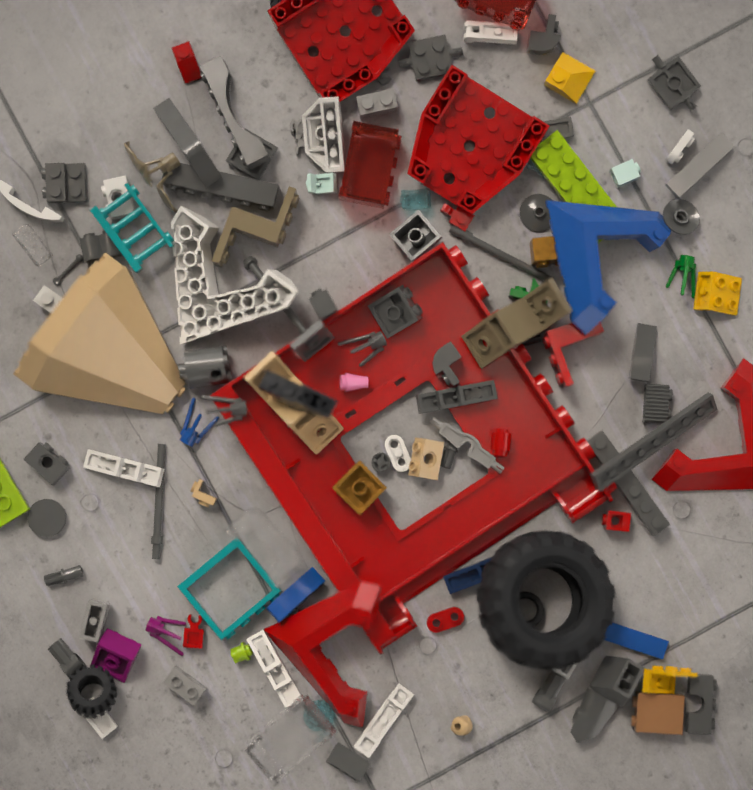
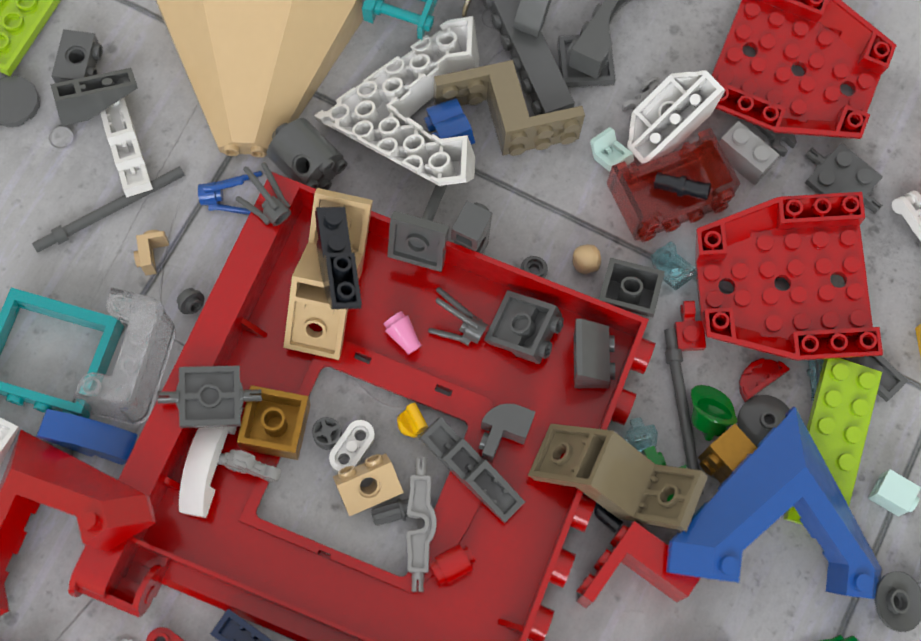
camera: 50 degrees right, 15 degrees down
(79, 467) = (88, 96): none -> dark grey slope
(245, 270) = (448, 121): none -> blue brick
(250, 489) = (190, 301): none -> dark grey plate
(325, 514) = (209, 396): none -> dark grey plate
(351, 536) = (199, 468): none -> white slope
(362, 273) = (535, 261): none -> dark grey plate
(368, 521) = (245, 463): none -> light grey piece
(372, 158) = (682, 186): none -> black pin
(377, 245) = (586, 259): none -> tan piece
(406, 411) = (411, 421): none -> yellow plate
(439, 285) = (592, 355): none -> dark grey slope
(500, 291) = (640, 435): none -> clear light blue tile
(511, 198) = (760, 375): none -> red tile
(512, 239) = (711, 411): none -> green piece

